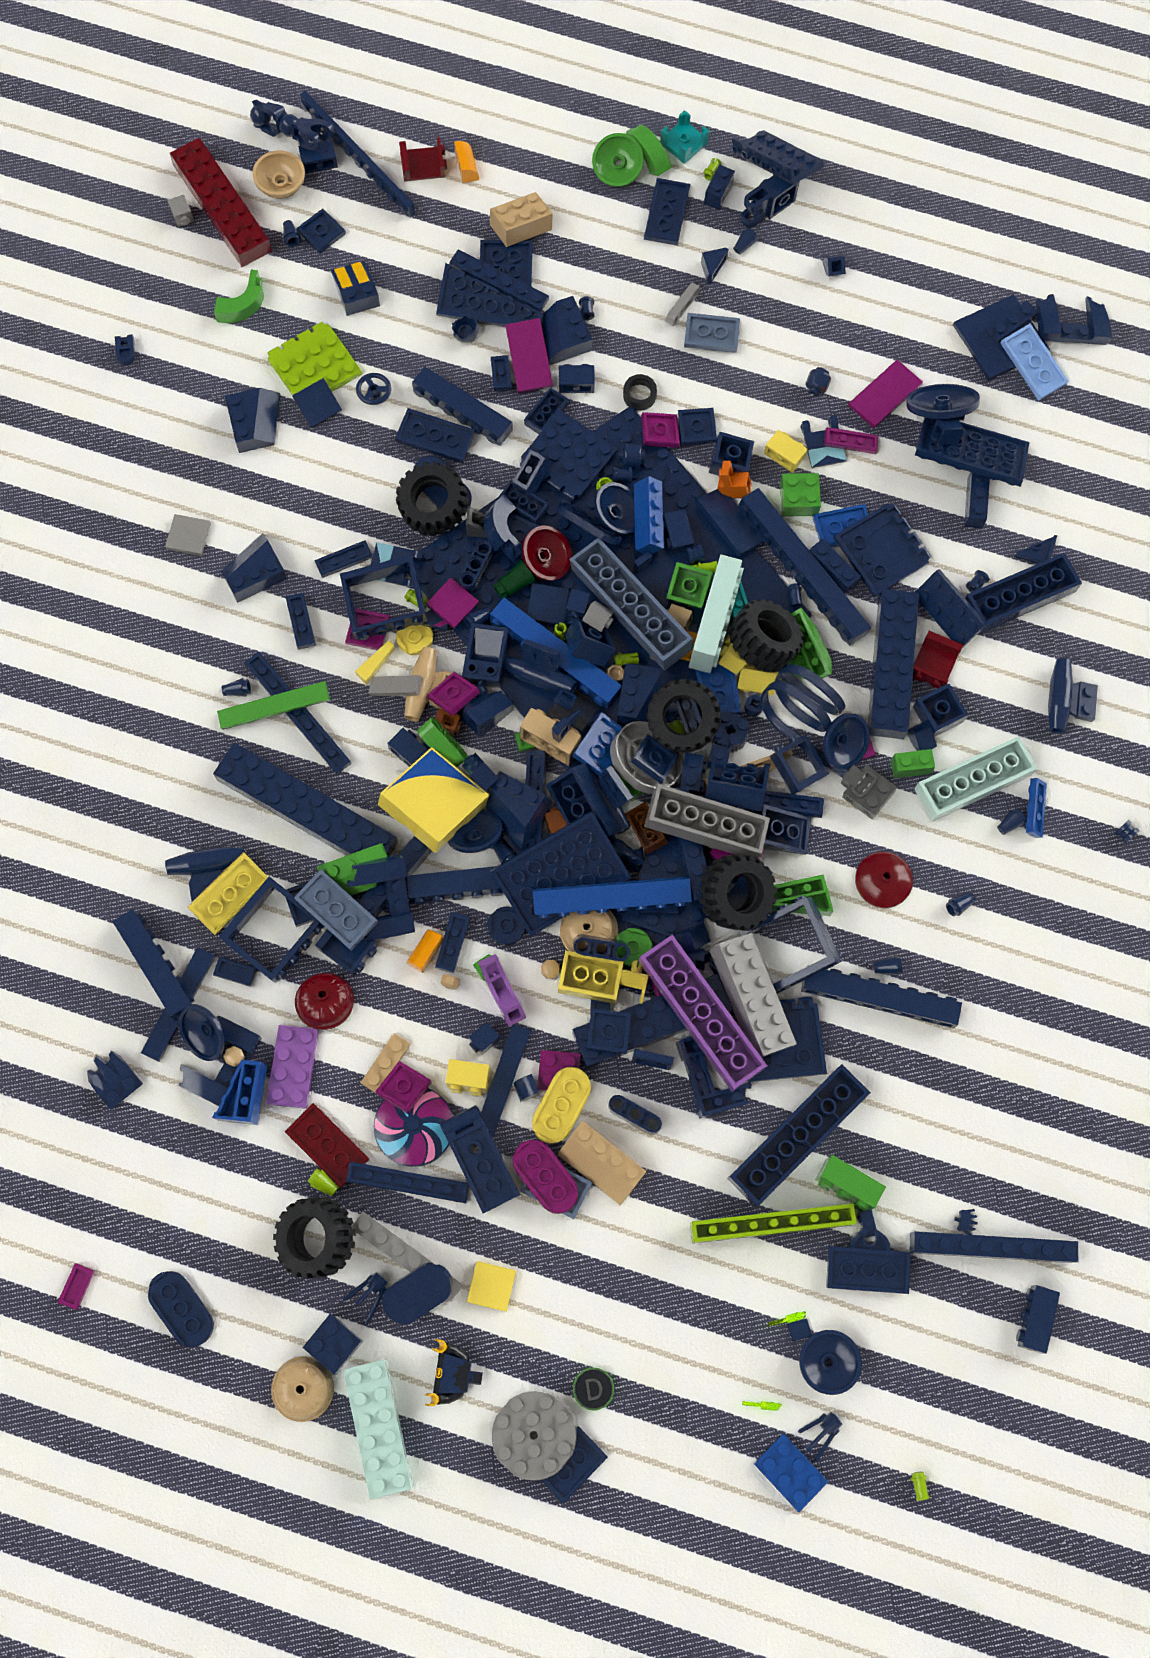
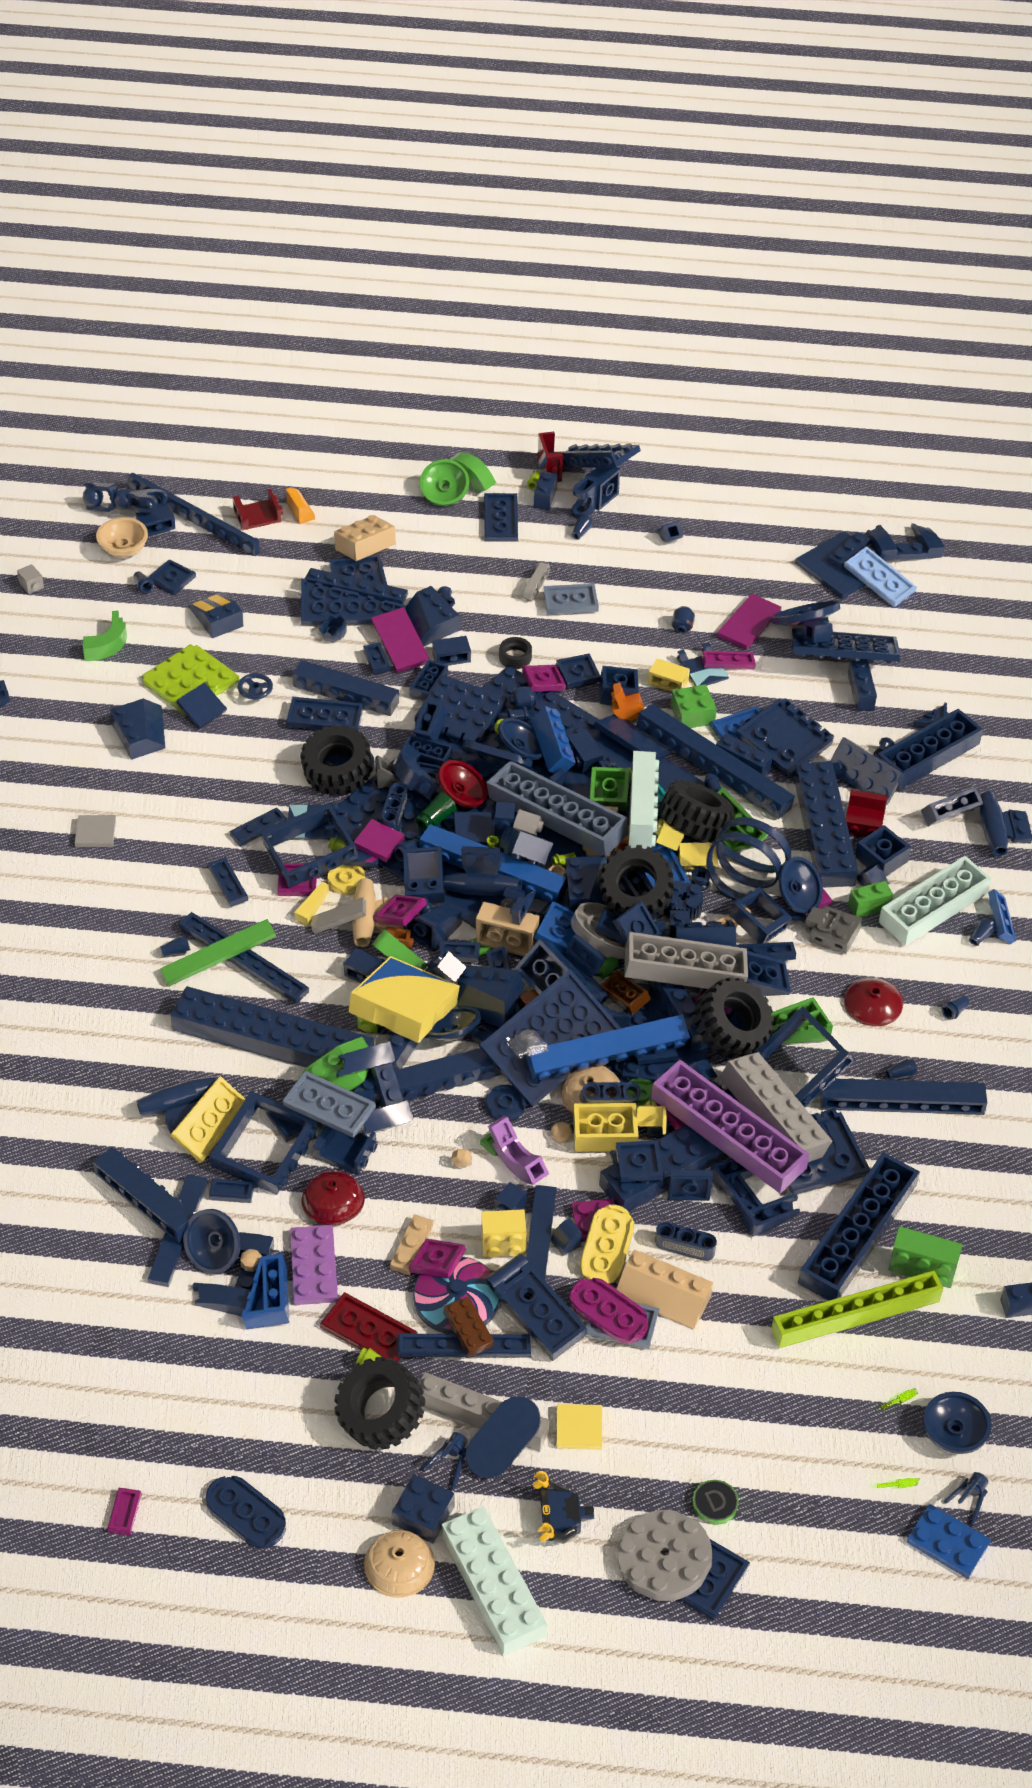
camera: 10 degrees left, 25 degrees down
(113, 1079) = (123, 1308): dark blue plate -> none
(220, 202) = (69, 567): dark red brick -> none
(253, 570) = (171, 848): dark blue wedge -> none
(413, 1169) = (468, 1326): none -> reddish brown piece
(425, 950) = (428, 1136): light orange brick -> none
(452, 942) = (454, 1124): dark blue plate -> none
(501, 746) = (462, 950): none -> dark blue plate
(533, 885) = (527, 1043): none -> clear plate
(671, 767) = (636, 920): none -> dark blue tile
(684, 139) = (502, 463): teal panel -> none
(712, 263) = (555, 546): dark blue slope -> none
(733, 155) = (549, 461): none -> dark red panel
(799, 1329) = (914, 1407): dark blue piece -> none
(867, 1221) = (954, 1296): dark blue piece -> none
(868, 1266) = (968, 1332): dark blue plate -> none
(1024, 669) = (951, 806): none -> brick

